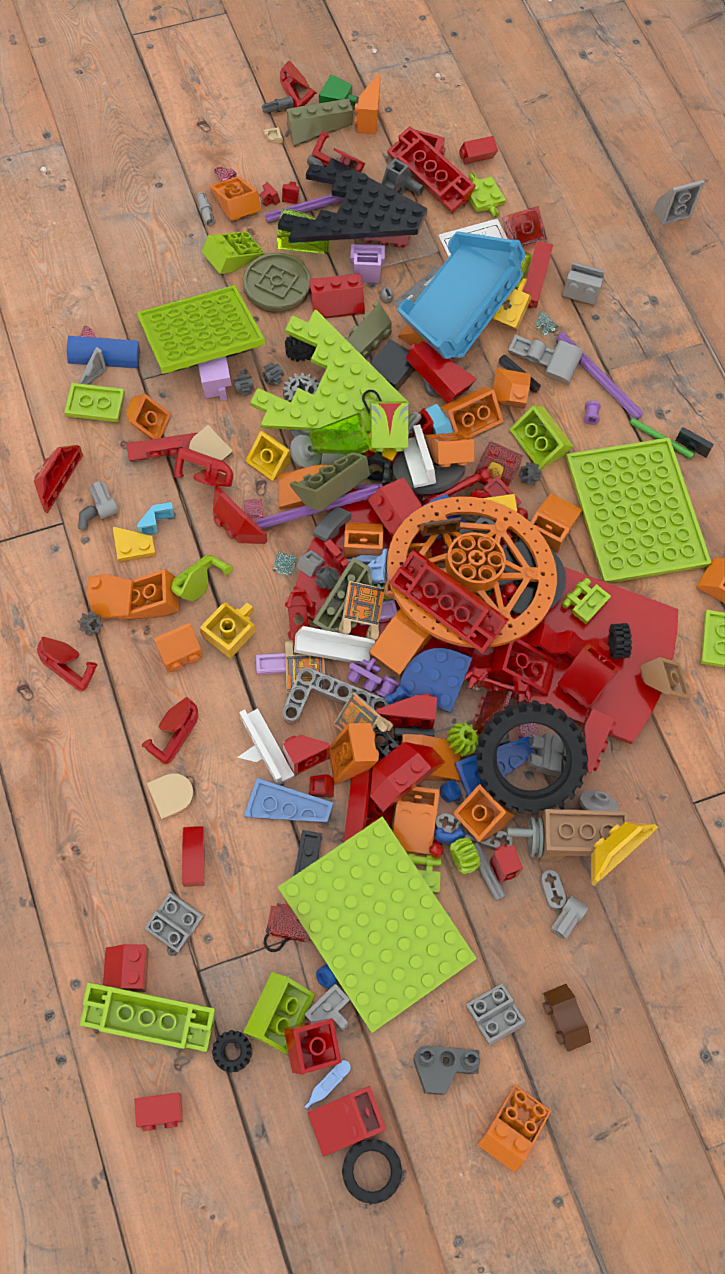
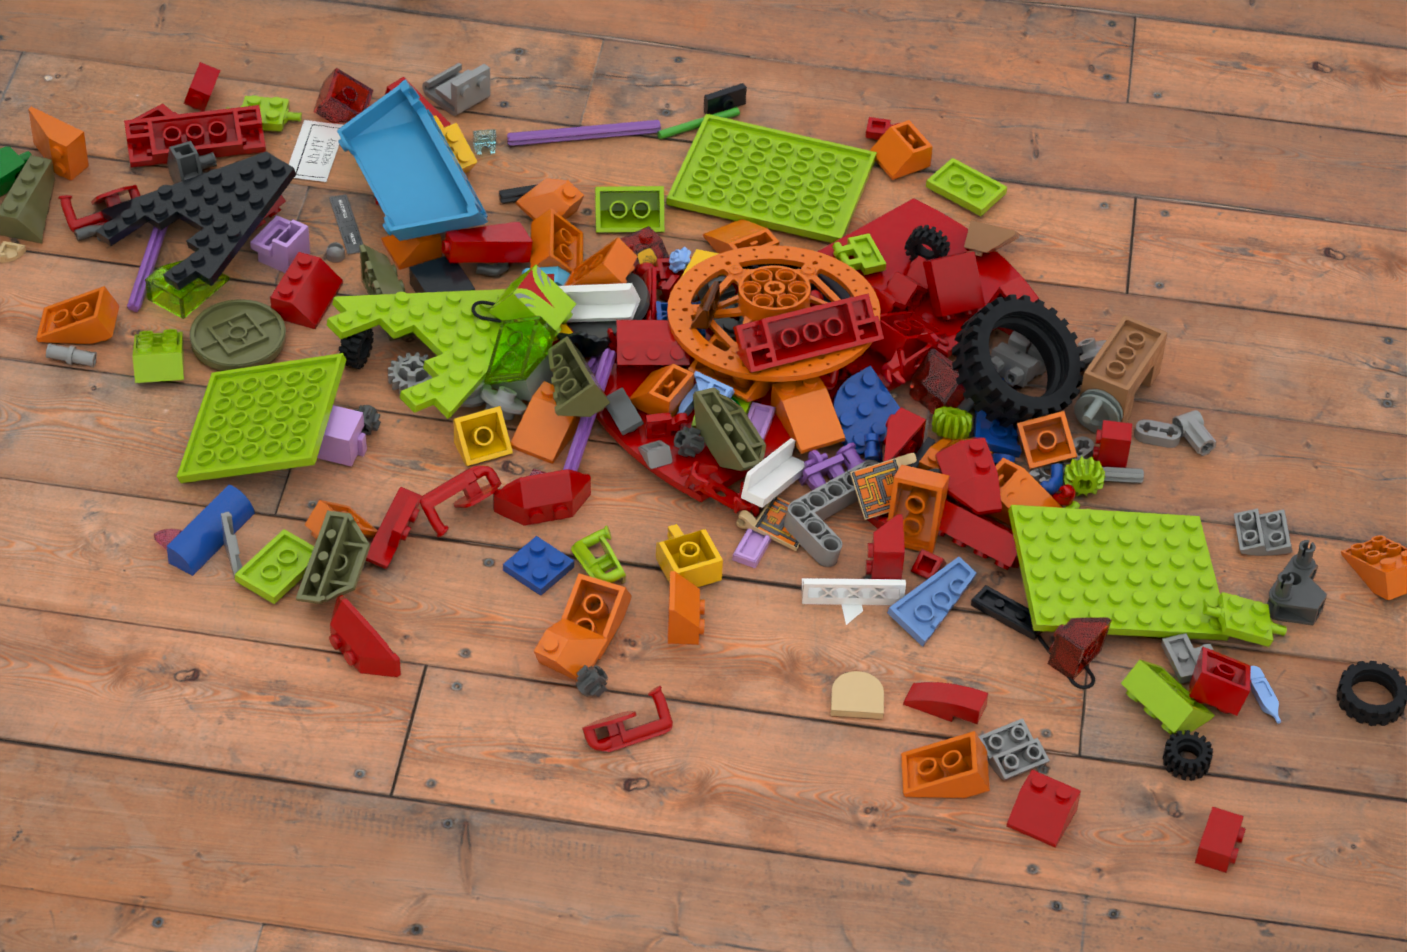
camera: 60 degrees left, 20 degrees down
(85, 515) = (437, 632): dark grey arm -> none
(101, 427) = (334, 560): none -> olive wedge
(104, 503) = (435, 610): light grey piece -> none
(129, 884) = (946, 768): none -> orange slope
(132, 545) = (506, 609): yellow wing -> none
(147, 1017) = (1110, 807): lime slope -> none
(148, 523) = (490, 574): medium azure slope -> none
(178, 721) = (770, 647): red piece -> none
(180, 544) = (538, 565): none -> blue plate
(210, 444) = (421, 481): tan tile -> none
(225, 174) = (29, 319): clear pink tile -> none
(269, 195) = (107, 281): red tile -> none
(273, 374) = (370, 388): dark grey gear -> none
(284, 563) = (632, 484): clear light blue tile -> none
(290, 193) = (118, 268): red tile -> none
(326, 977) = (1149, 644): blue tile -> none
(346, 1121) = (1313, 685): red slope -> none
(362, 606) = (755, 423): flag -> none
(388, 1039) = (1245, 619): none -> lime plate
(501, 489) = (679, 259): none -> light blue plant
(530, 473) = (672, 230): dark grey gear -> none
(559, 362) = (543, 150): light grey plate -> none
(566, 1017) = (1297, 477): reddish brown brick -> none
(592, 409) = (628, 157): medium lavender bush -> none
(617, 847) = (1162, 335): yellow wedge -> none

